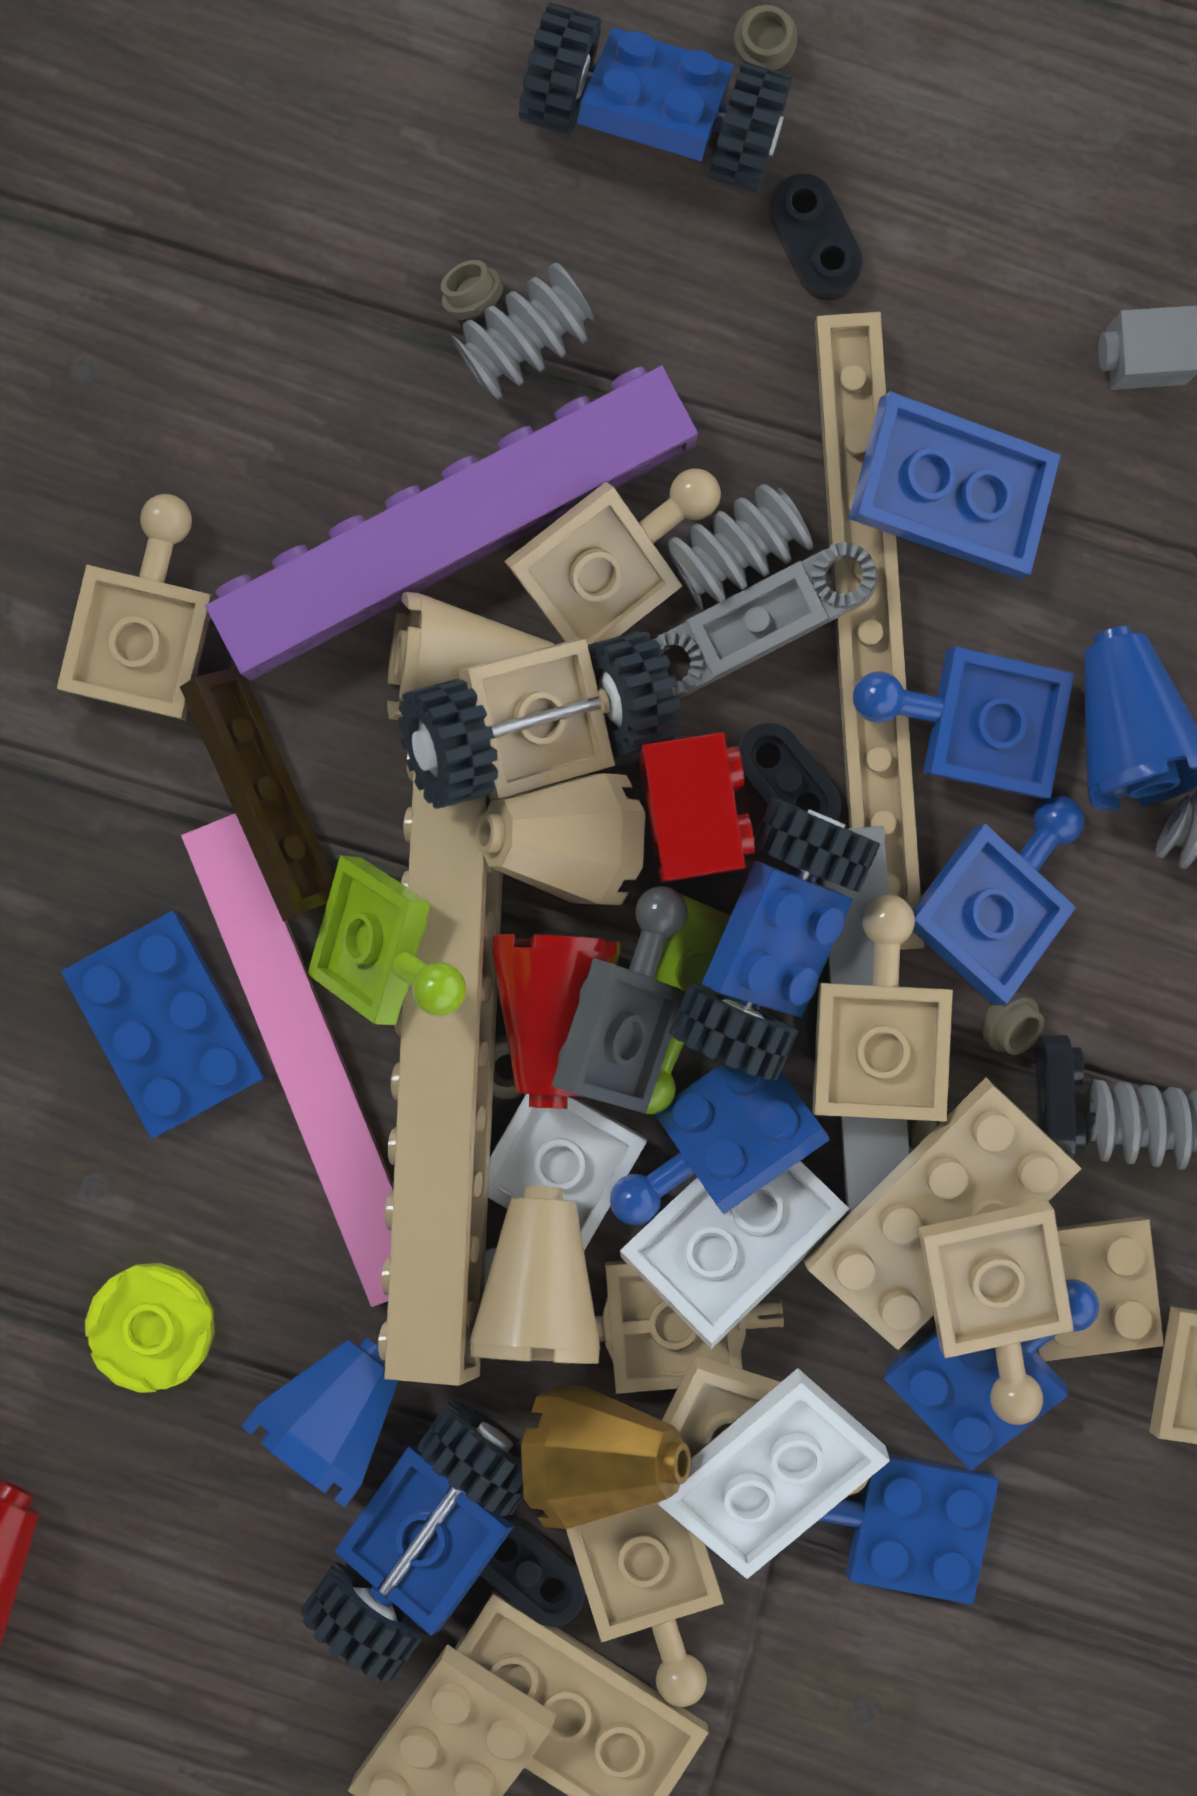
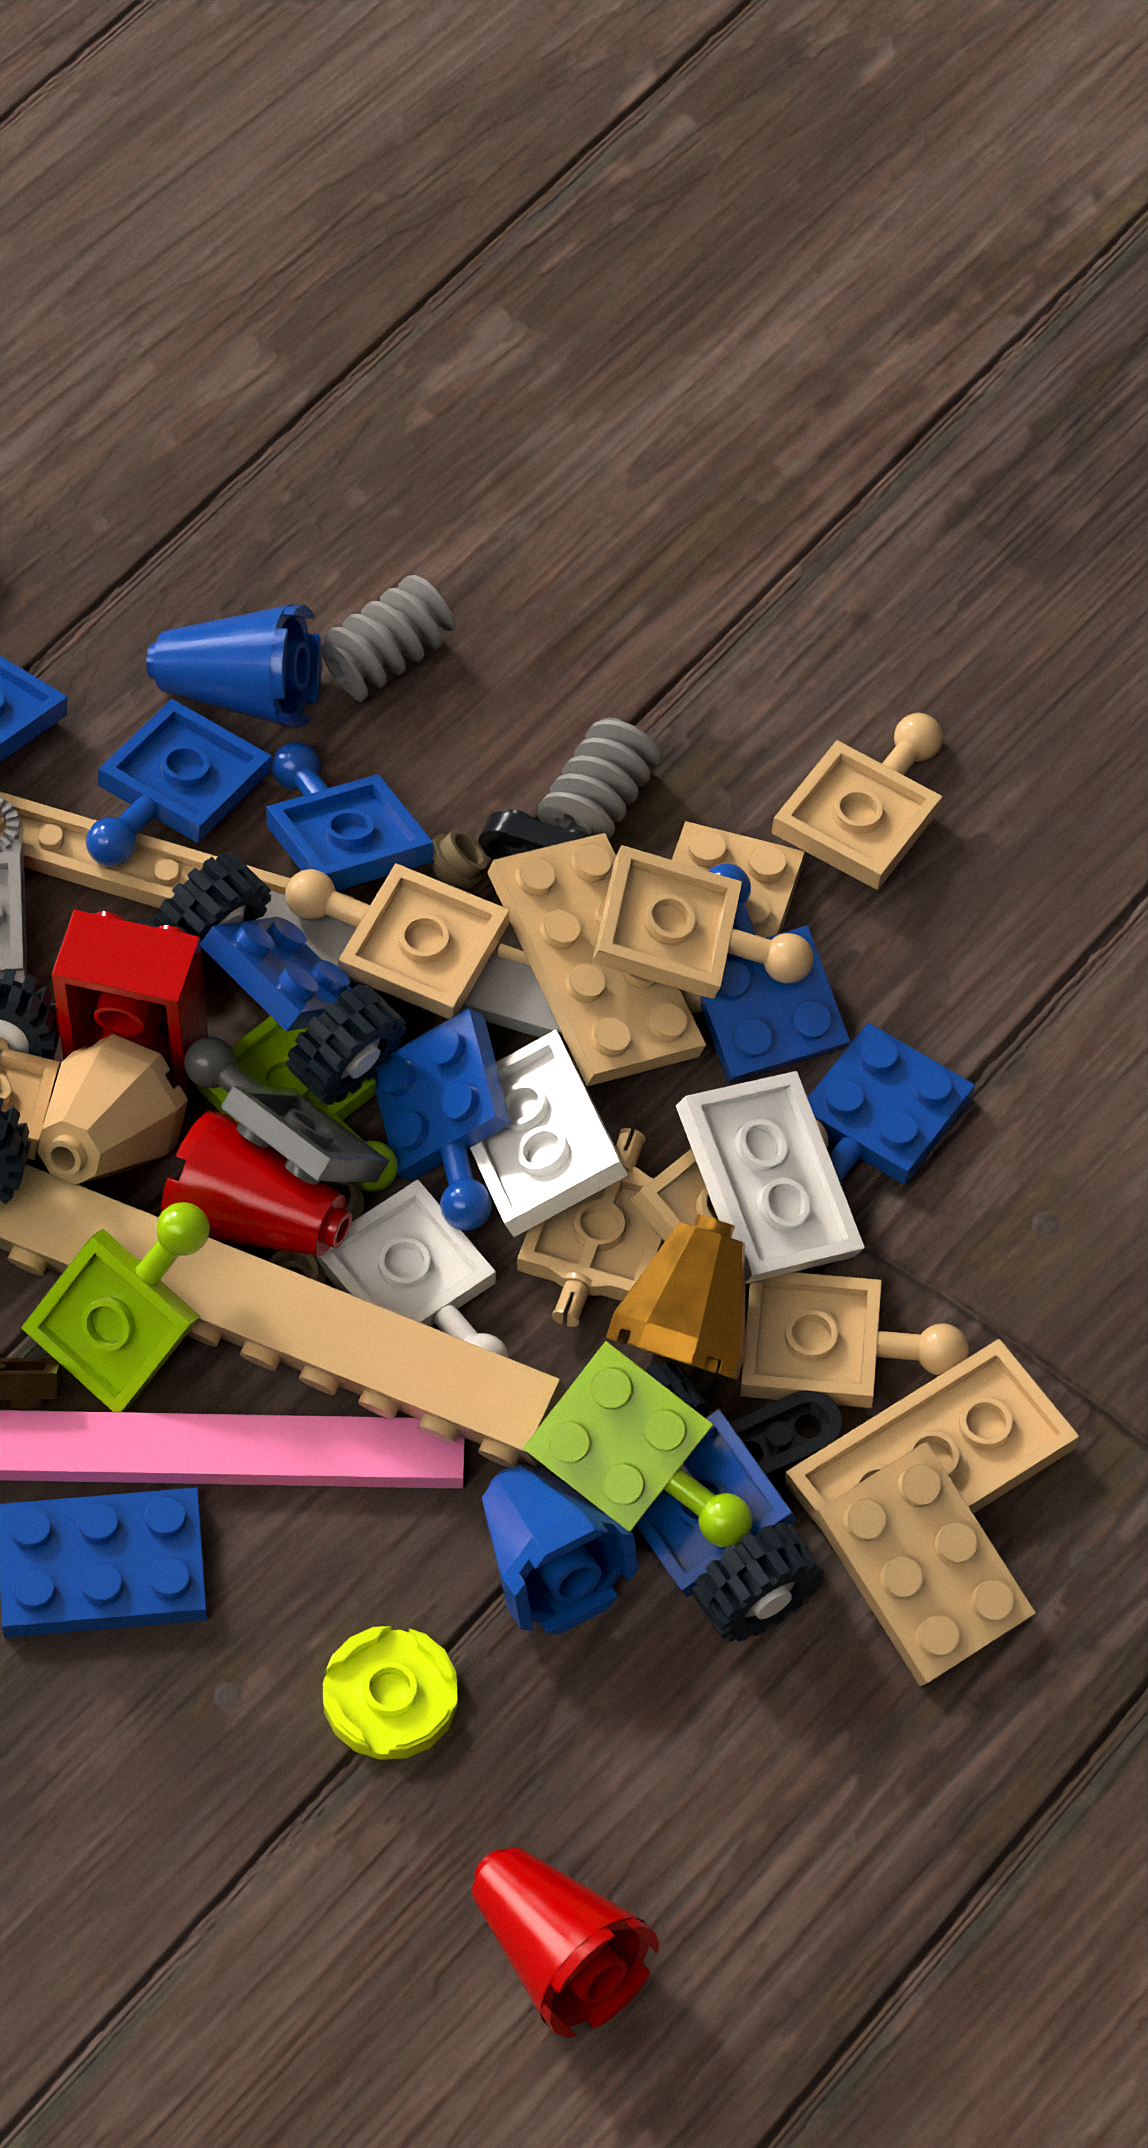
camera: 75 degrees left, 30 degrees down
(424, 1474) = (624, 1442): none -> lime plate
(538, 1286) = (508, 1295): tan cone -> none

